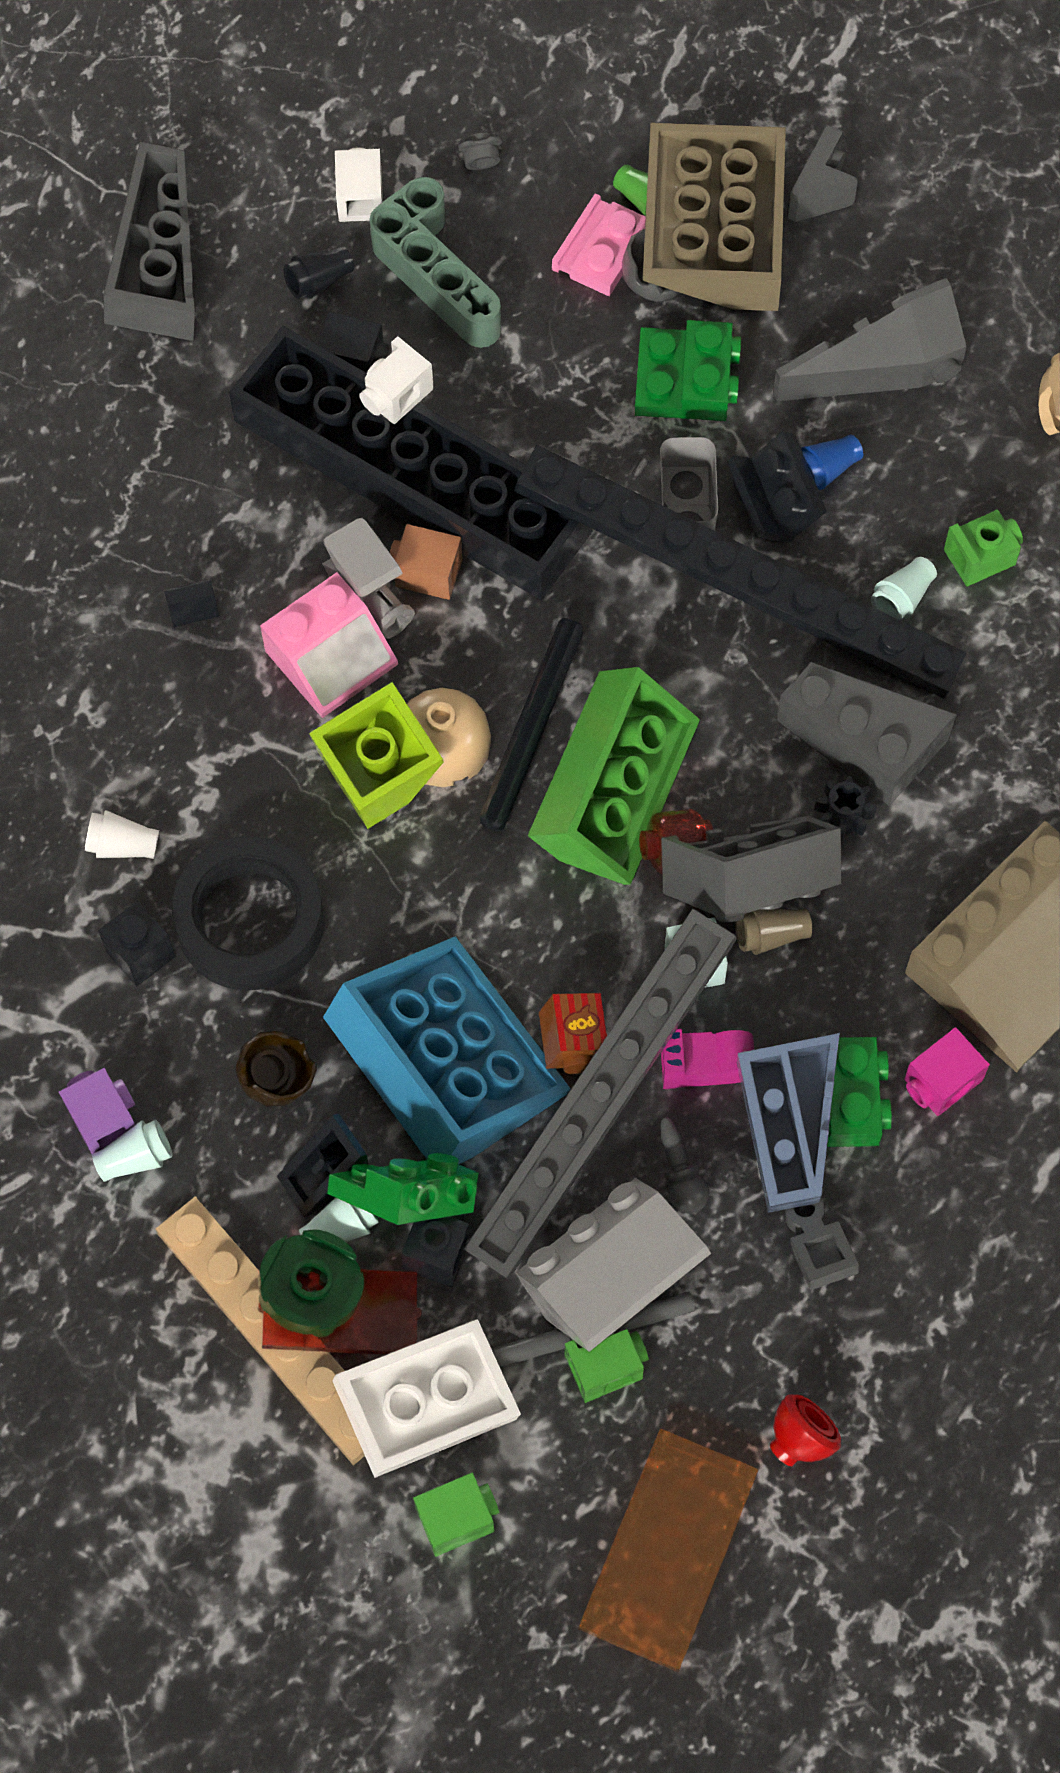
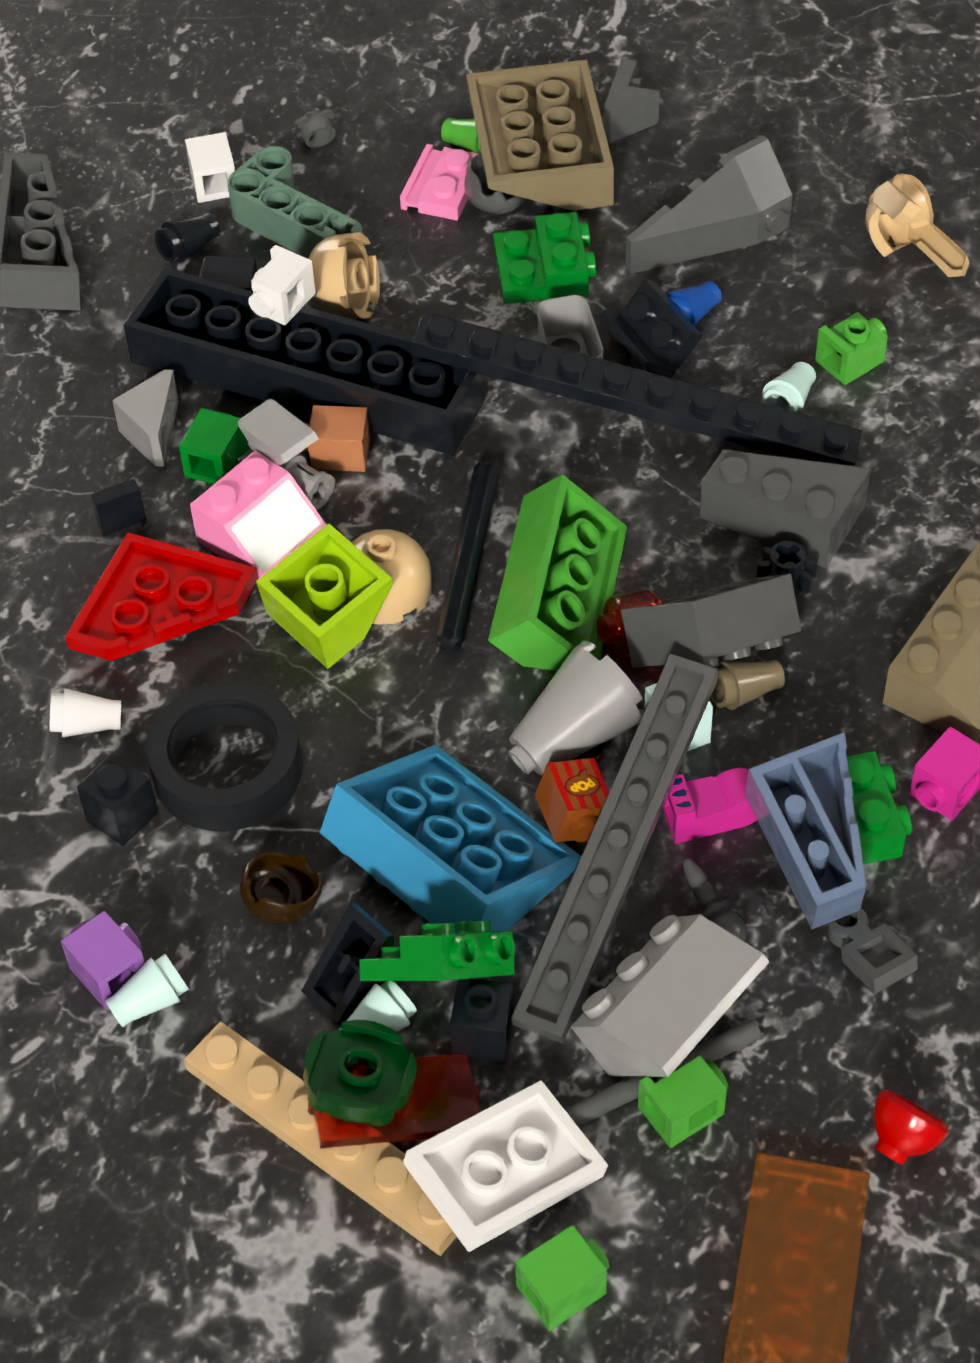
camera: 10 degrees left, 15 degrees down
(213, 716) = (156, 595): none -> red plate
(240, 496) = (148, 415): none -> light grey slope
(298, 548) = (212, 446): none -> green brick
(469, 362) = (345, 276): none -> tan cylinder
(593, 937) = (576, 711): none -> light grey cone

